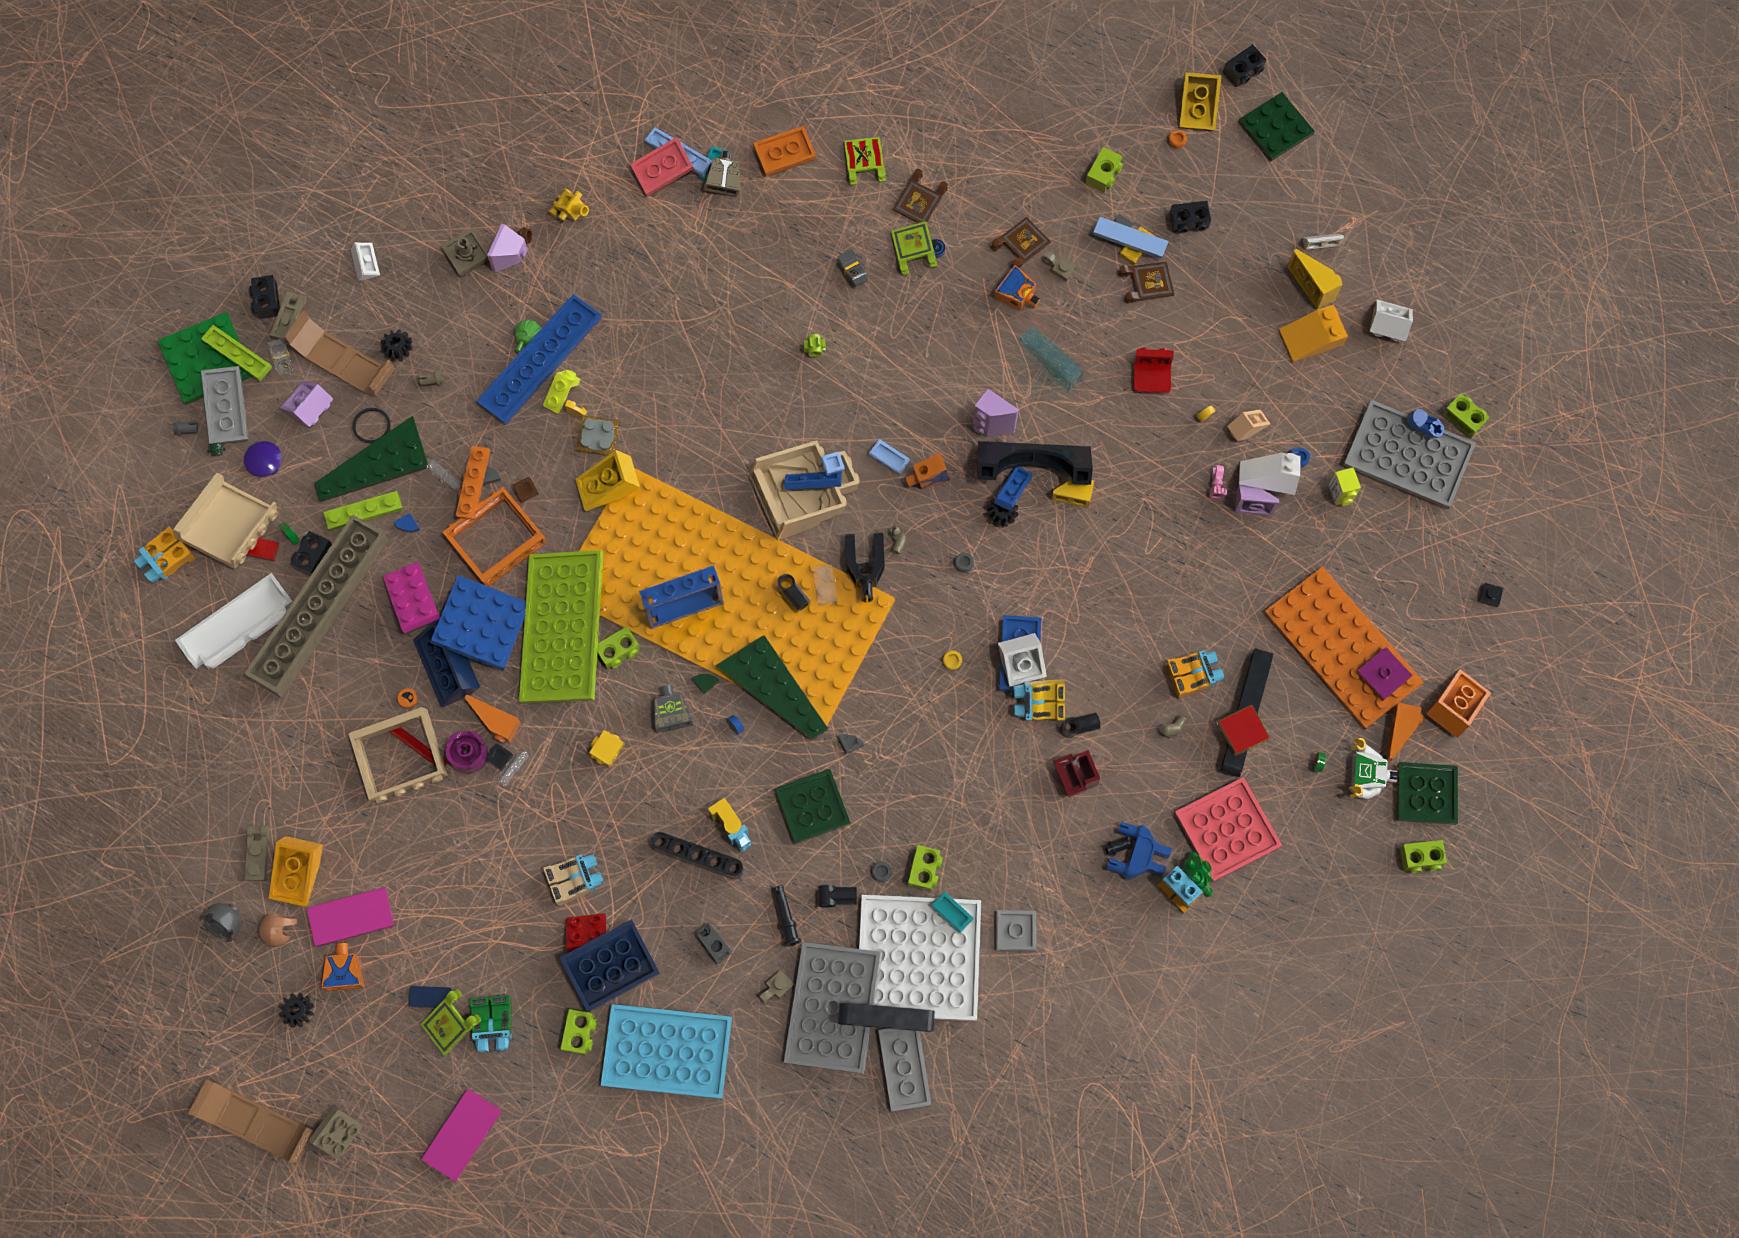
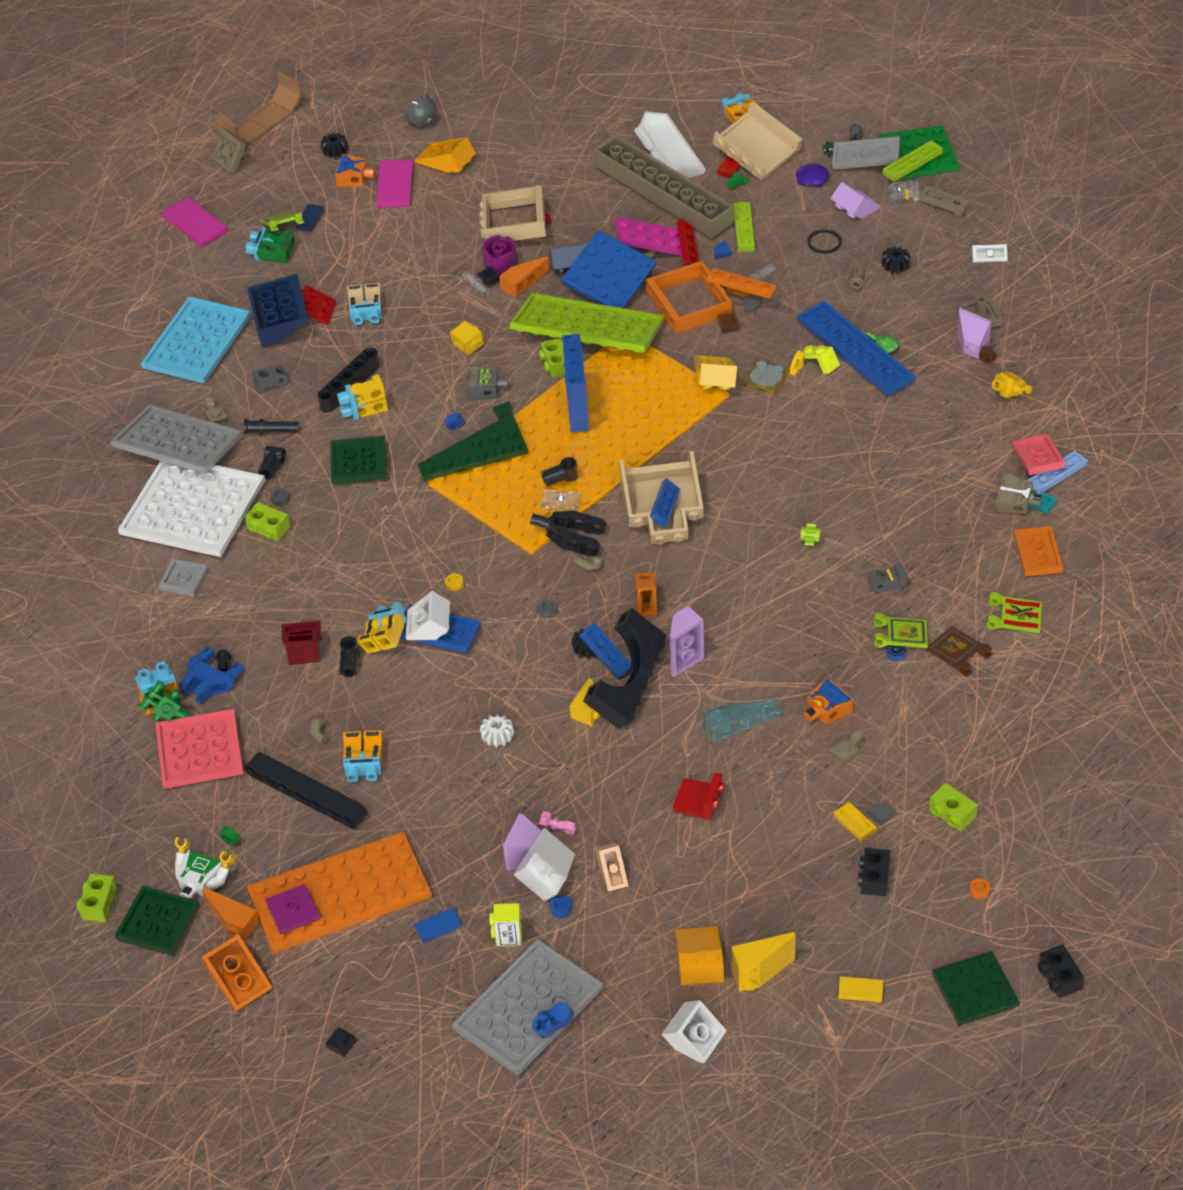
camera: 110 degrees right, 25 degrees down
(257, 853) = (478, 141): dark tan plate -> none
(268, 296) = (967, 186): black brick -> none
(271, 929) = (402, 138): nougat helmet -> none
(305, 552) = (715, 186): black brick -> none
(337, 356) = (900, 224): medium nougat windscreen -> none
(386, 459) = (786, 242): dark green wing -> none
(407, 698) = (563, 233): orange tile -> none
(410, 557) = (687, 242): none -> red tile
(572, 1032) = (235, 289): lime brick -> none
(832, 463) = (674, 513): light blue tile -> none
(850, 743) = (406, 496): dark grey tile -> none
(886, 1017) = (146, 459): black beam -> none
(889, 457) = (676, 574): light blue tile -> none
(904, 1069) = (105, 479): light grey plate -> none
(952, 912) = (218, 528): teal tile -> none
(1023, 240) = (885, 725): reddish brown flag -> none
(1130, 237) = (861, 810): light blue tile -> none
(1131, 569) = (496, 730): none -> white gear
(1150, 281) = (808, 824): reddish brown flag -> none
(1200, 101) = (1024, 916): yellow slope -> none
(1206, 413) = (636, 831): yellow tile -> none
(1243, 730) = (284, 771): red tile -> none
(1305, 208) = (860, 989): none -> yellow tile
(1322, 241) = (815, 993): white slope -> none
(1351, 552) = (437, 925): none -> blue tile
(1462, 419) = (550, 1068): lime brick -> none

